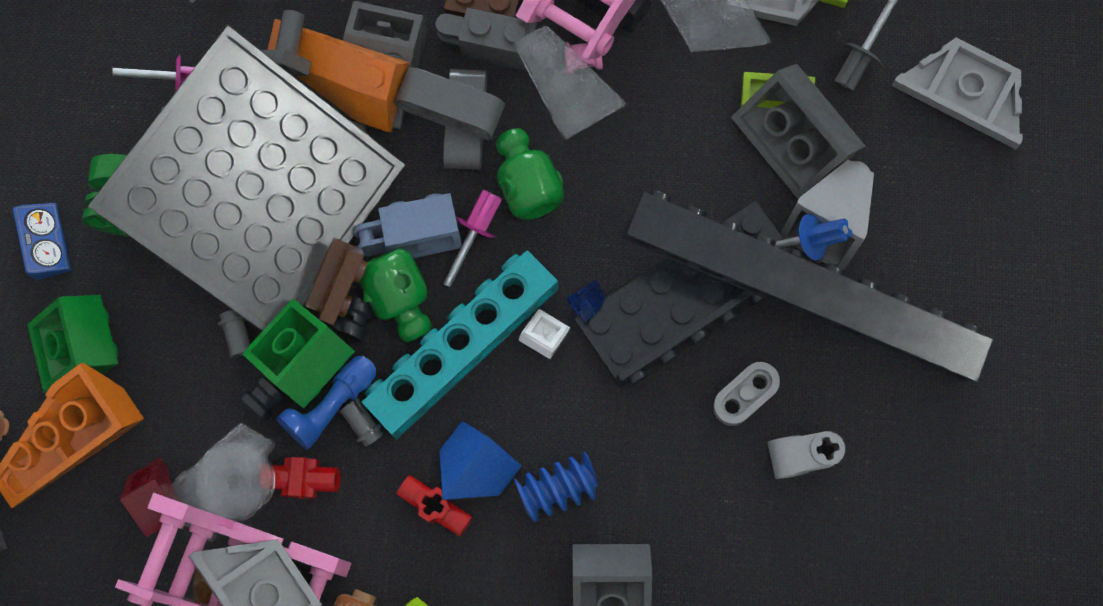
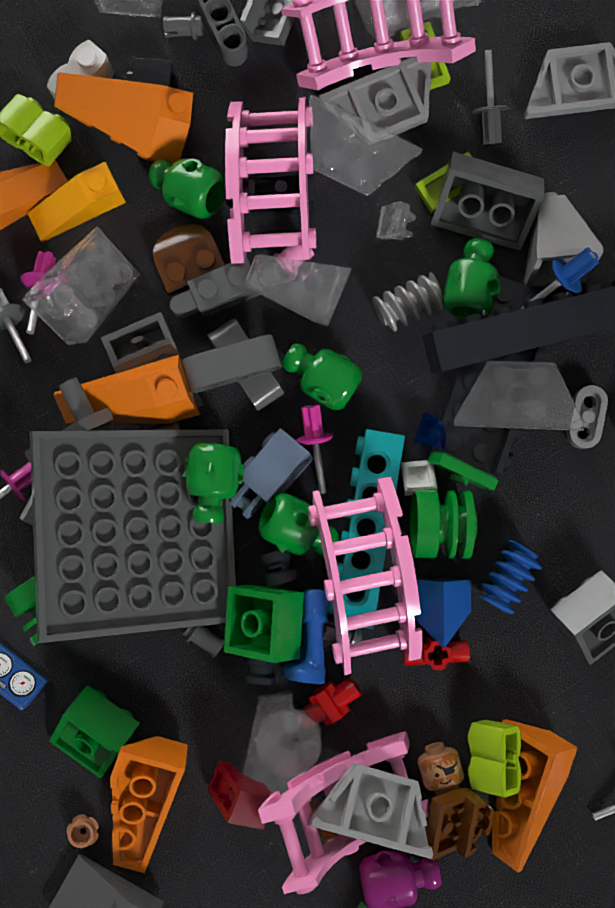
camera: 40 degrees left, 10 degrees up
(333, 280) = (250, 549): reddish brown slope -> none
(353, 189) = (213, 475): none -> green piece
(448, 391) = (400, 575): none -> bright pink fence
(528, 384) = (445, 524): none -> green wheel
(586, 354) = (462, 472): none -> green plate
(655, 169) = (409, 301): none -> light grey piece
(689, 322) = (520, 397): none -> clear wing
(696, 89) = (394, 221): none -> clear tile
(729, 187) = (472, 281): none -> green piece

